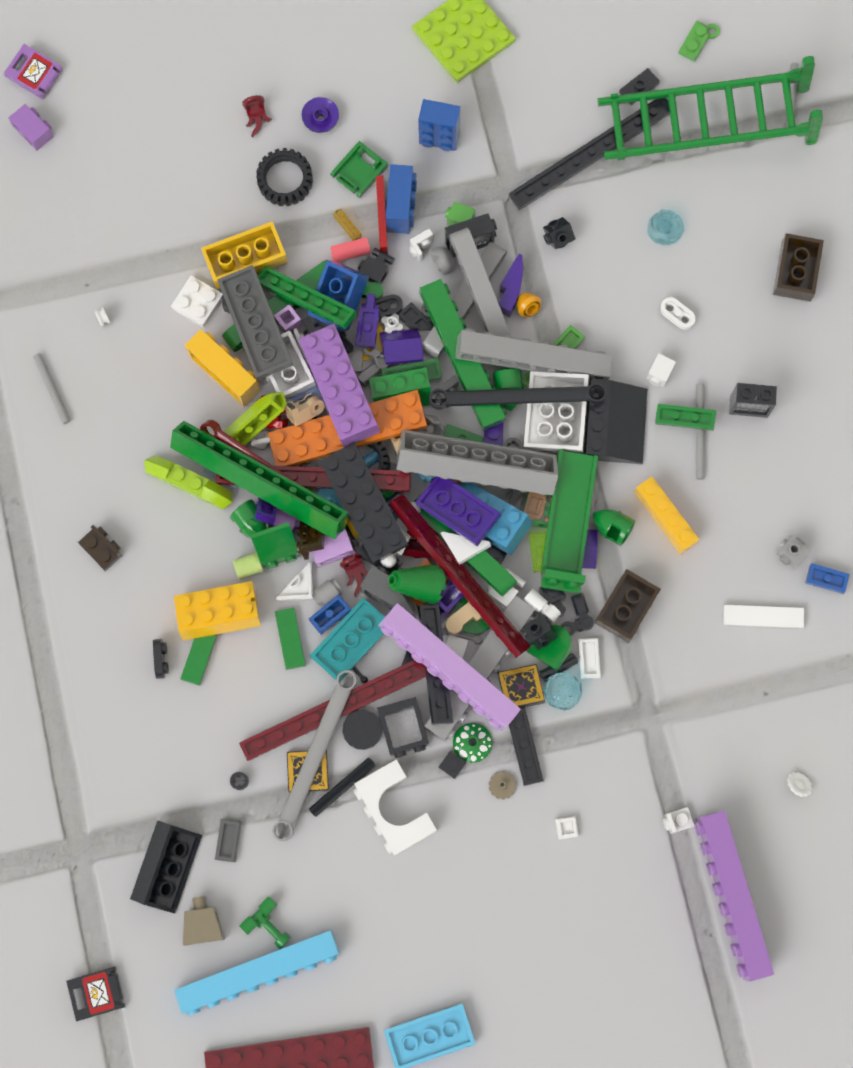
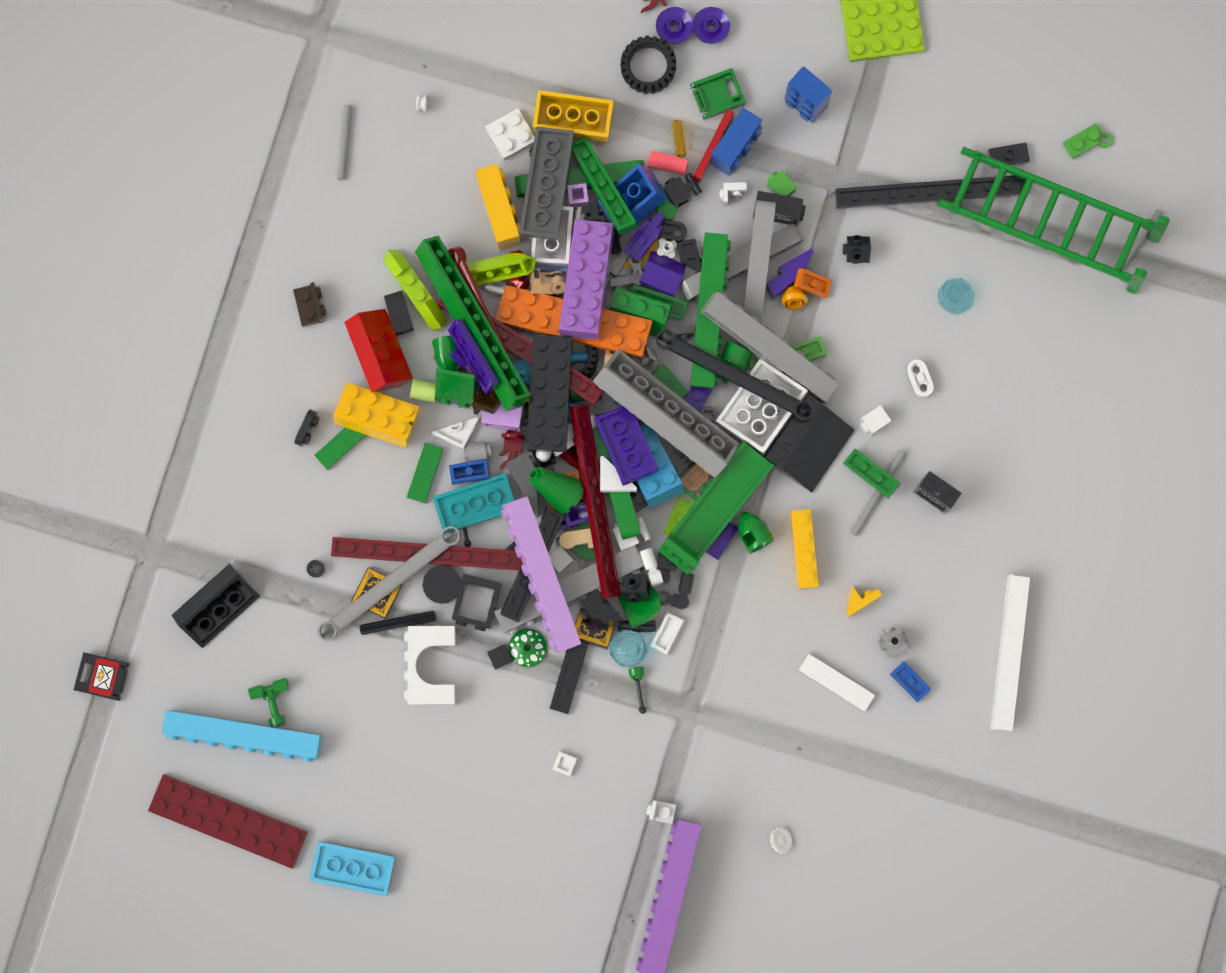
camera: 30 degrees right, 5 degrees up
(186, 510) = (398, 313): none -> black slope
(186, 551) = (378, 350): none -> red brick
(201, 924) = (218, 669): dark tan torso -> none
(228, 840) = (278, 613): dark grey tile -> none
(276, 506) = (473, 356): none -> dark purple plate
(288, 124) = (678, 17): none -> dark purple dish
(444, 258) = (744, 216): light grey hair -> none
(502, 785) = (531, 697): dark tan piece -> none
(519, 671) = (599, 611): none -> black slope
(537, 282) = (812, 283): none -> orange plate
(584, 710) = (637, 674): none -> hinge
(627, 605) = (724, 607): dark brown brick -> none
(739, 536) = (856, 603): none -> yellow slope
(798, 267) = (1049, 397): dark brown brick -> none

